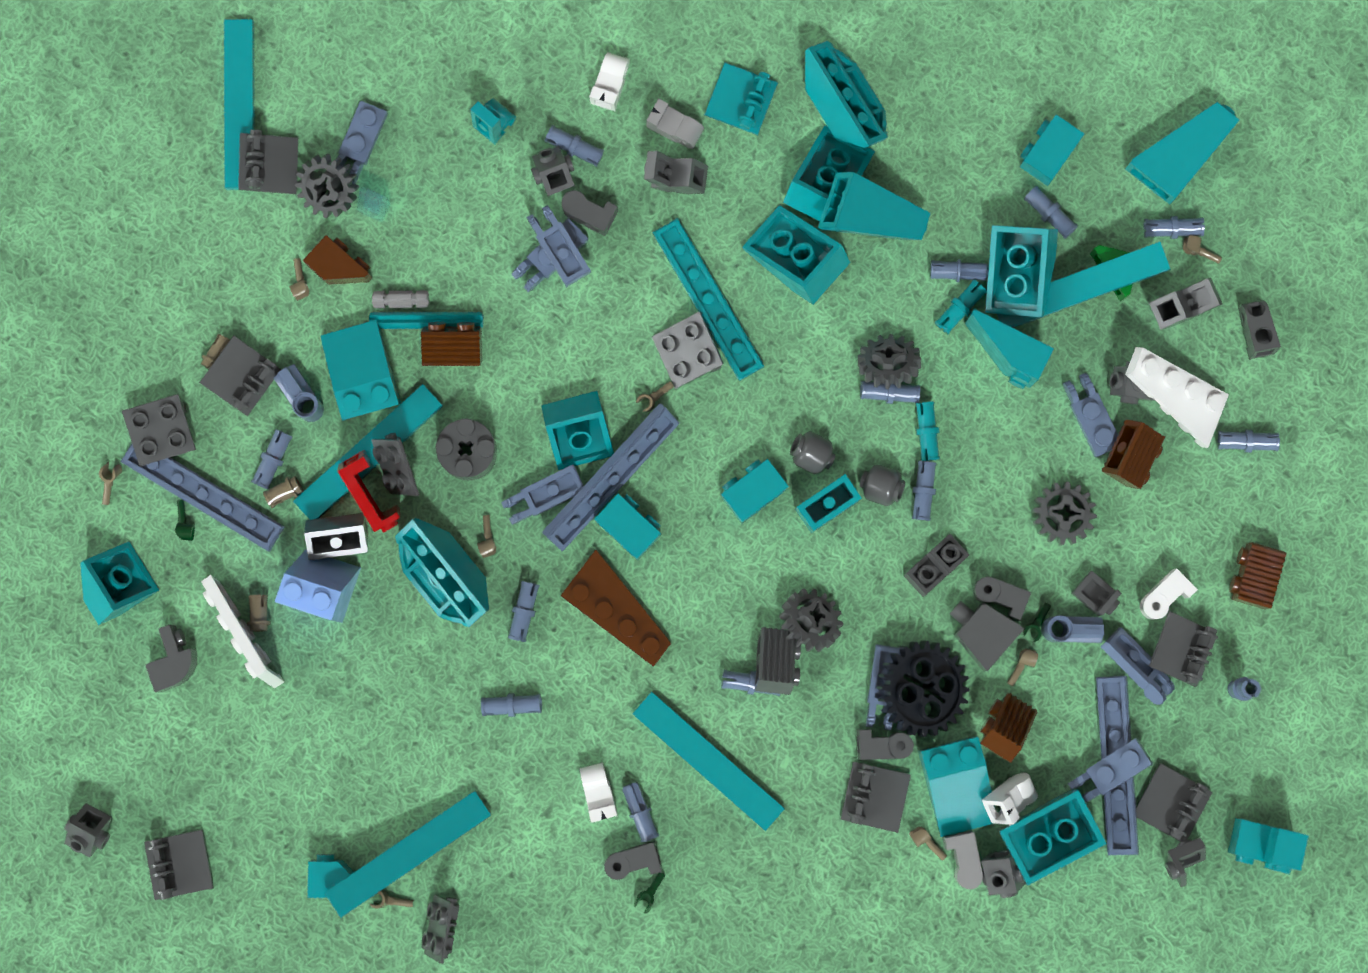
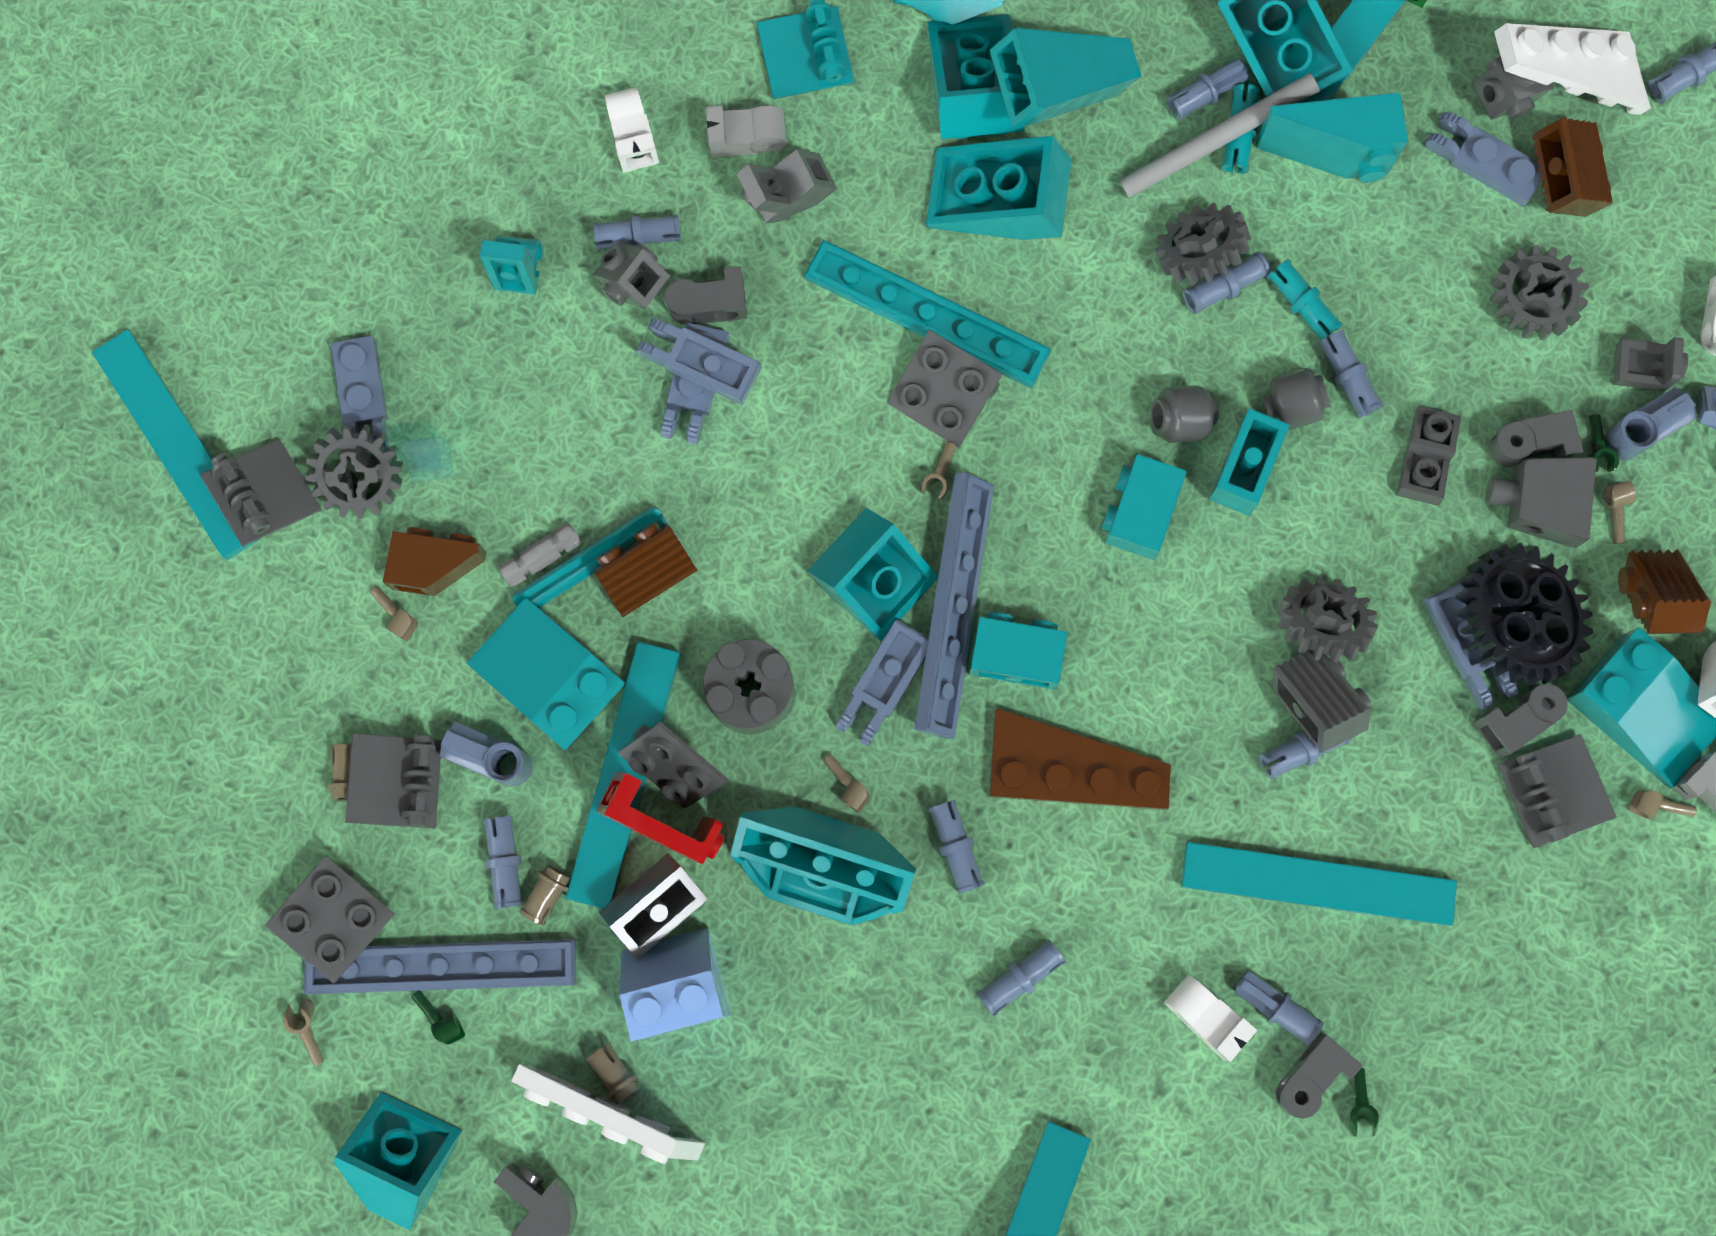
camera: 30 degrees left, 5 degrees down
(942, 304) = (1216, 136): none -> light grey piece

